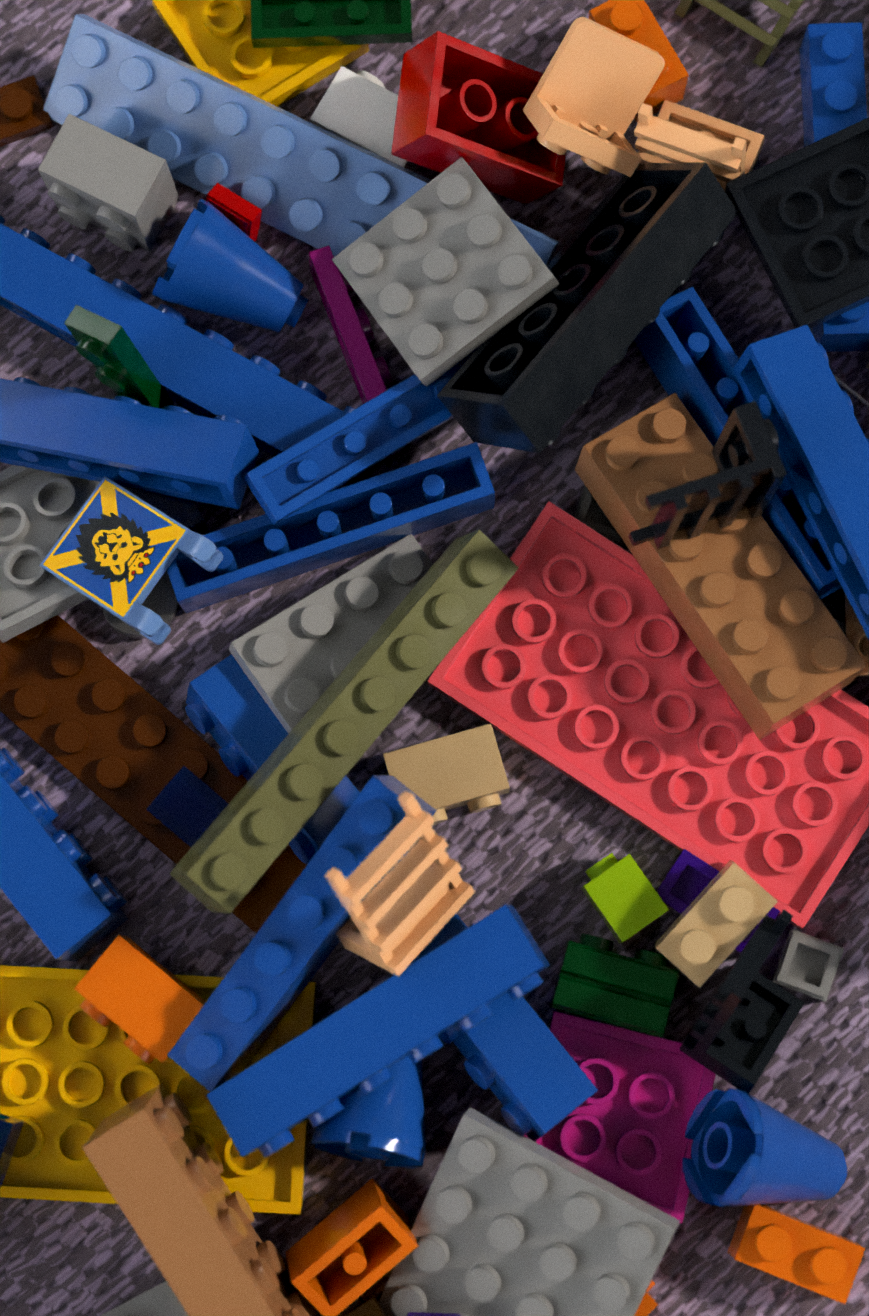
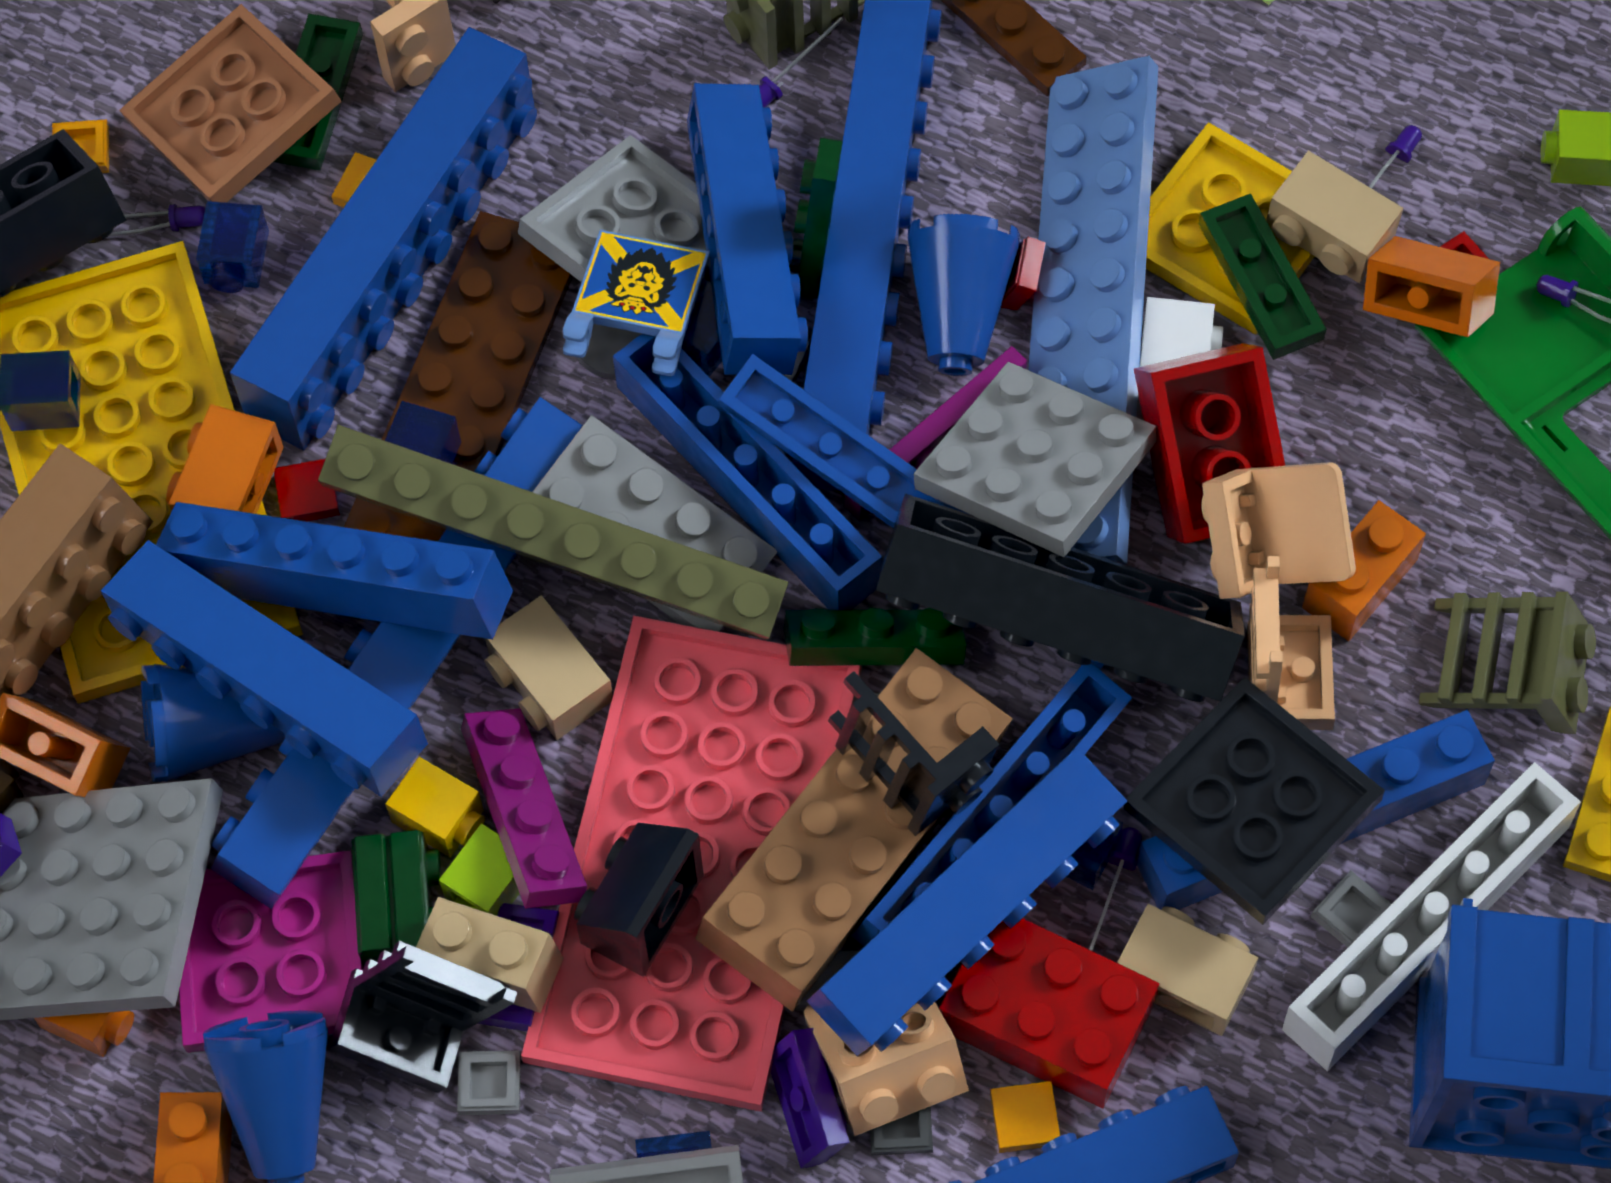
camera: 65 degrees right, 15 degrees down
(108, 184) = (995, 148): light grey brick -> none
(174, 930) = (301, 493): none -> red tile
(409, 902) = (383, 644): light nougat plate -> none
(530, 495) = (870, 637): none -> dark green plate
(551, 914) = (437, 806): none -> yellow brick
(580, 843) = (523, 808): none -> magenta plate
(714, 770) = (641, 894): none -> black slope

